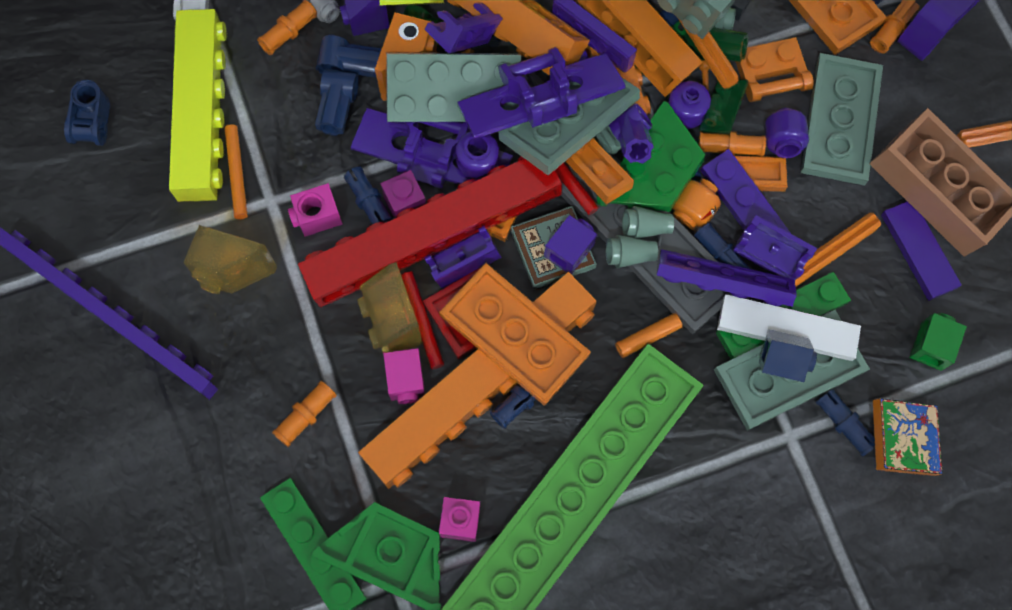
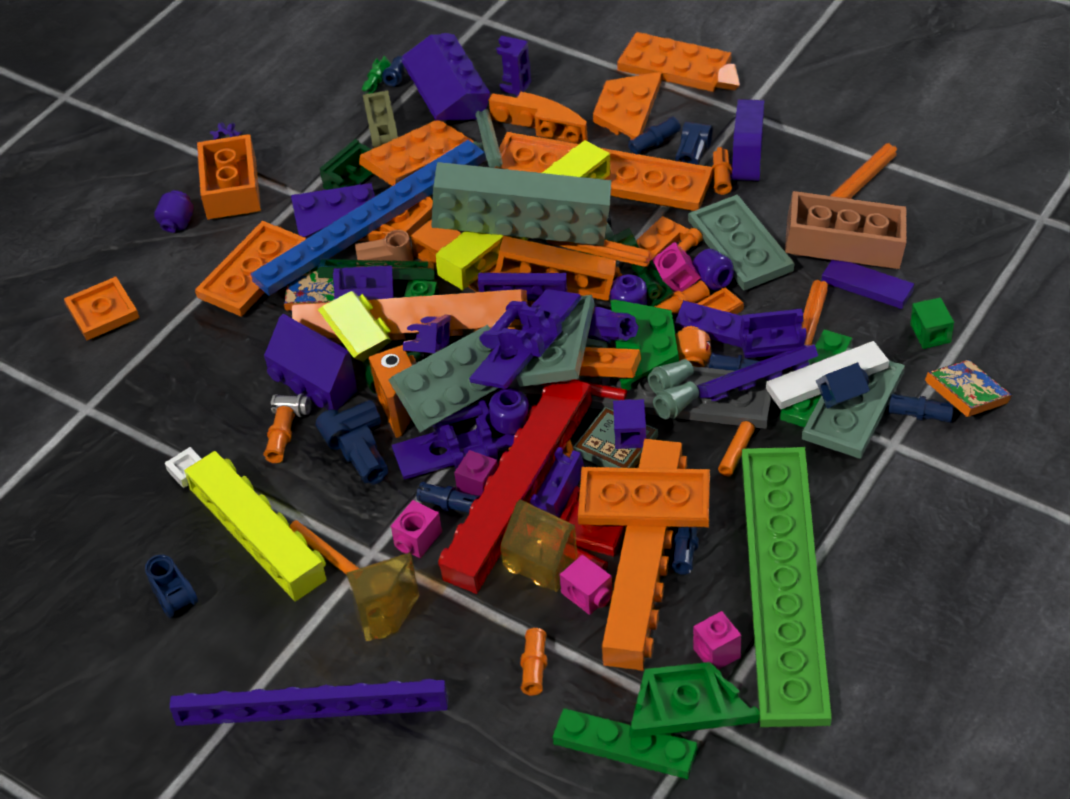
camera: 30 degrees left, 25 degrees down
(752, 109) = (676, 268): none -> dark pink brick

